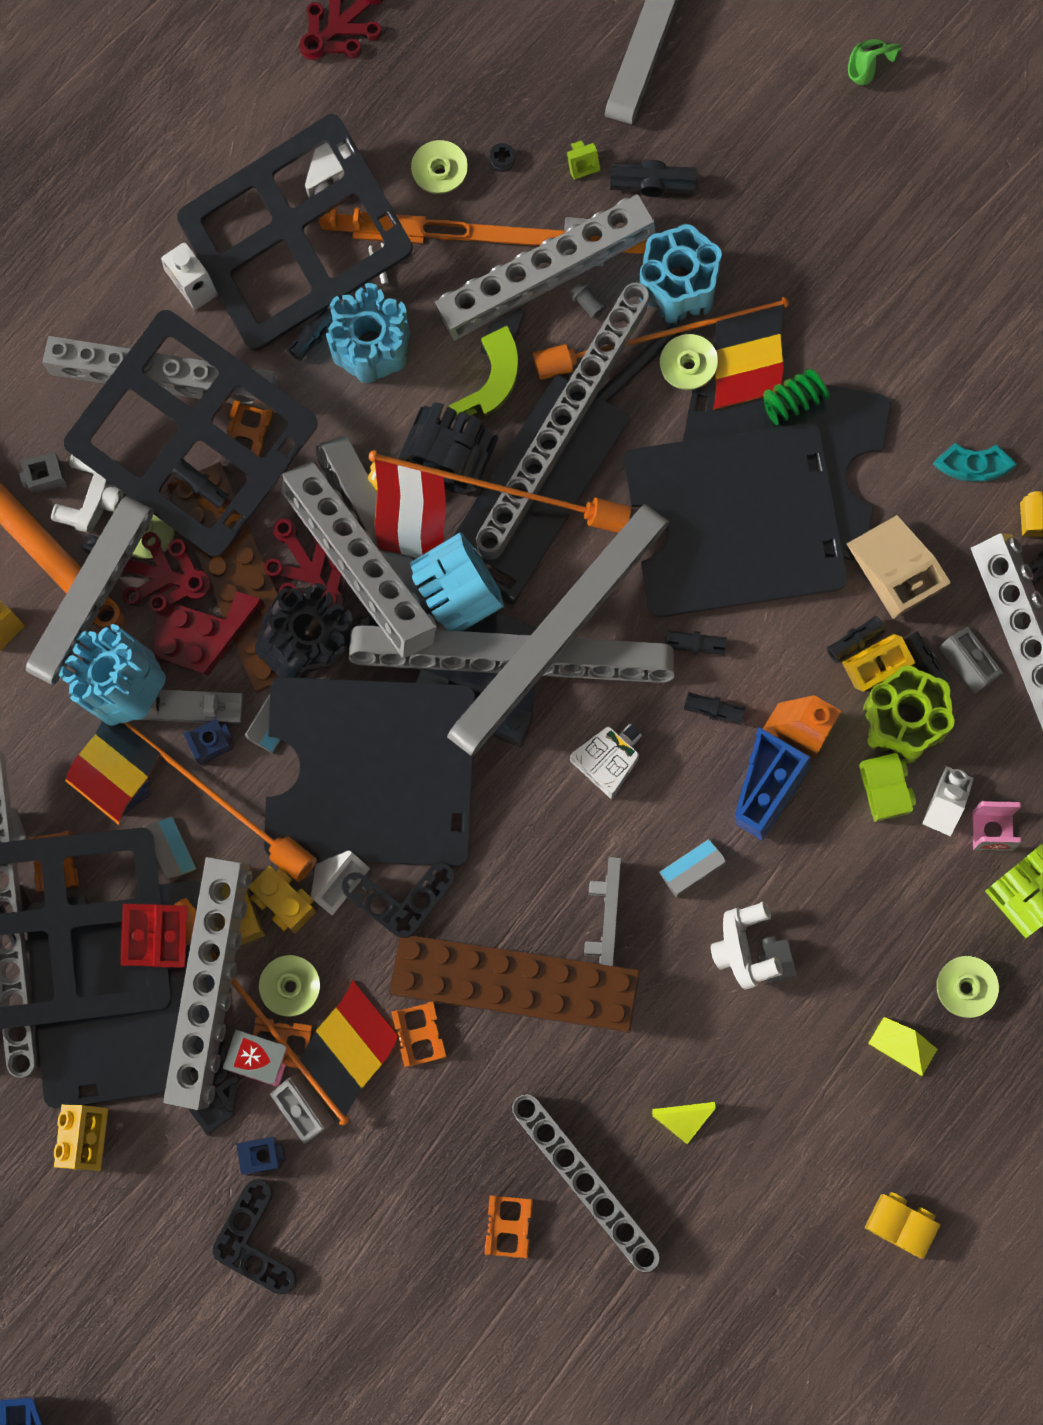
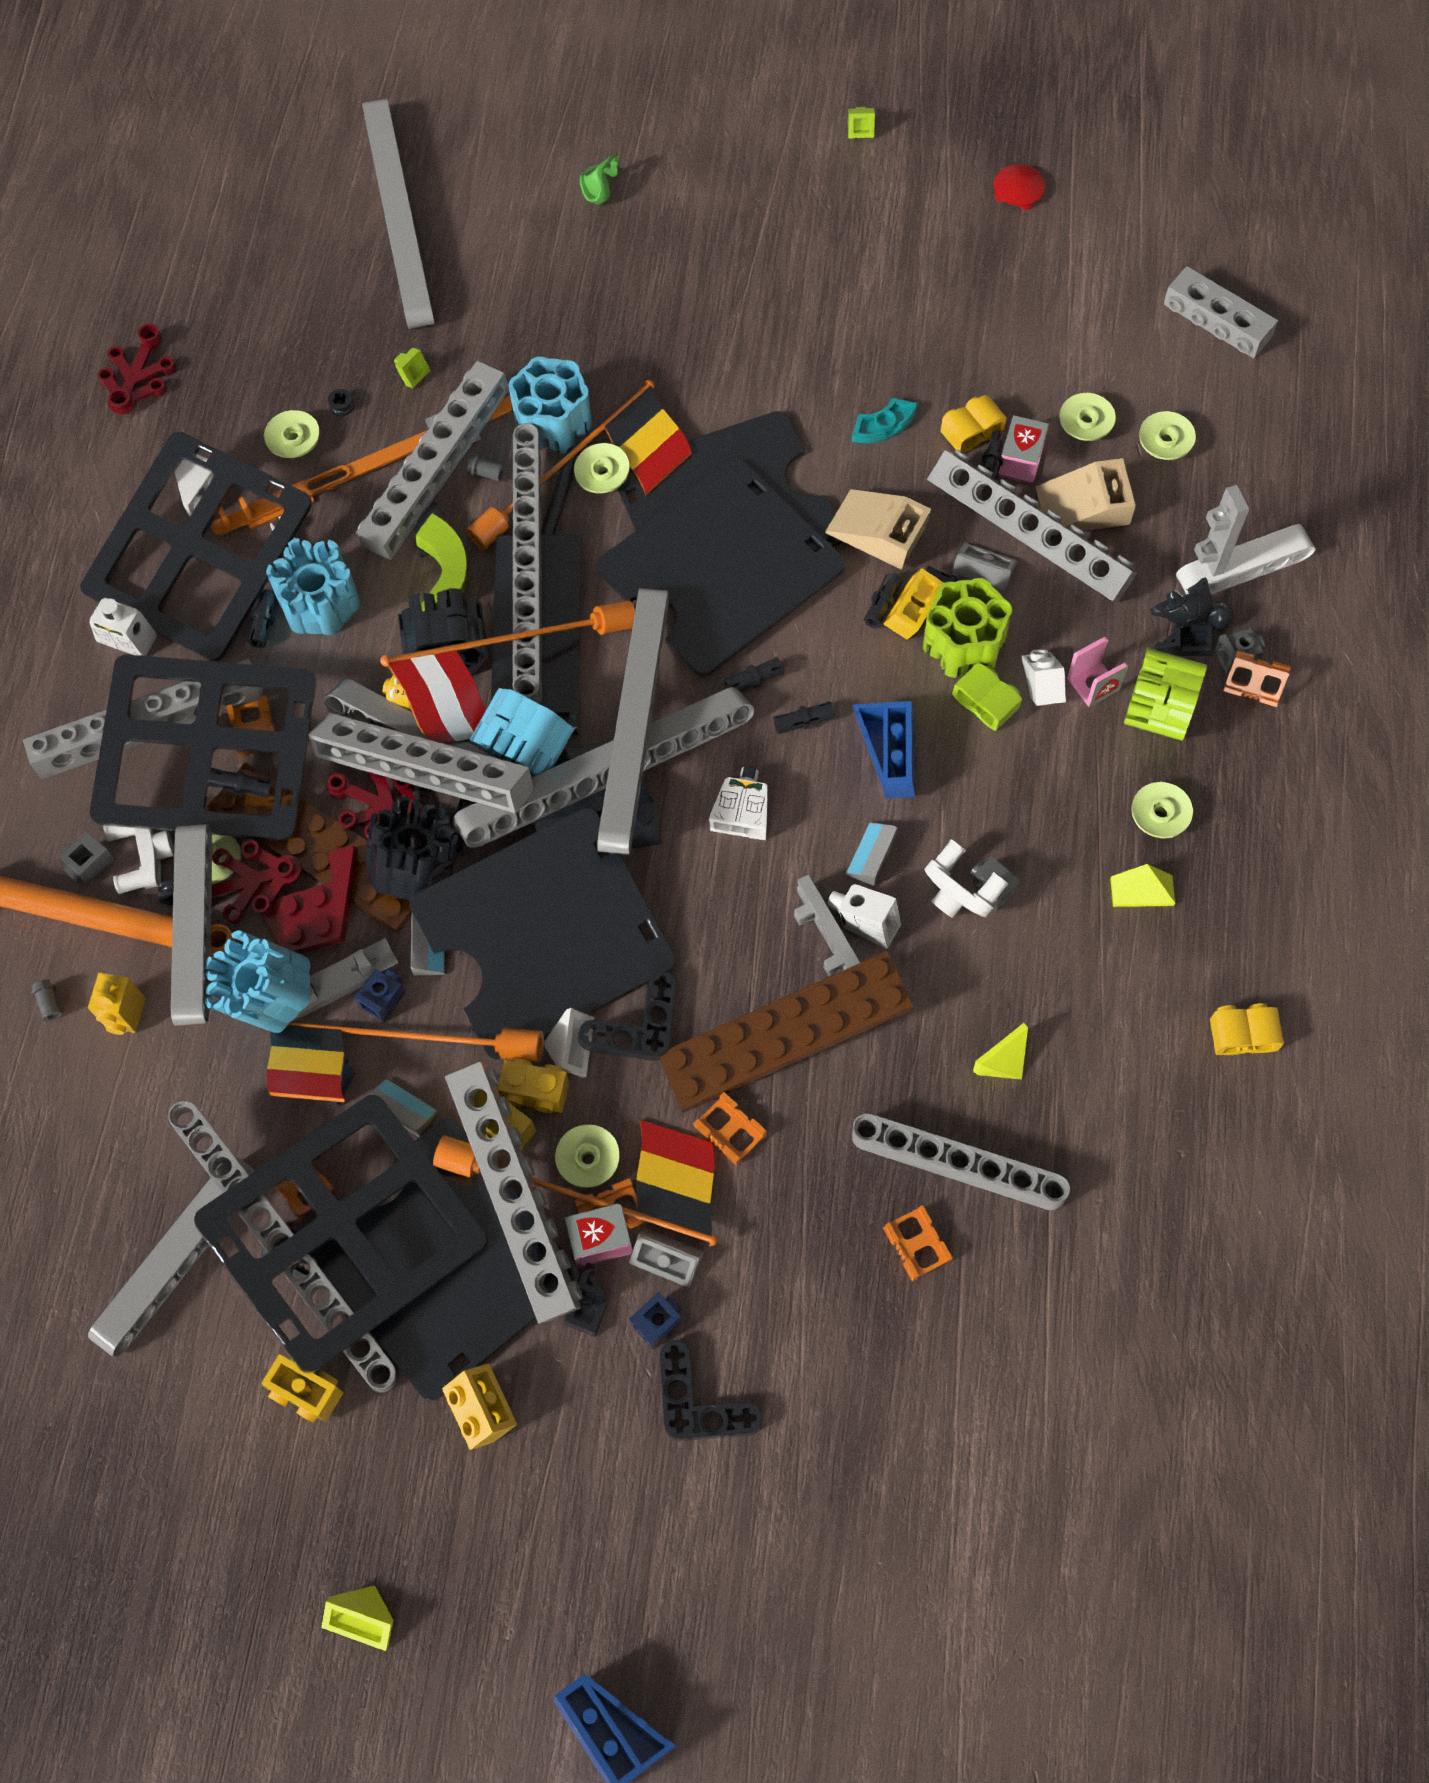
camera: 35 degrees left, 10 degrees down
(153, 935) = (436, 1181): red slope -> none
(651, 930) = (867, 914): none -> white torso
(653, 178) = (480, 349): black piece -> none
(793, 394) = (707, 444): green piece -> none
(803, 723) = (890, 672): orange slope -> none

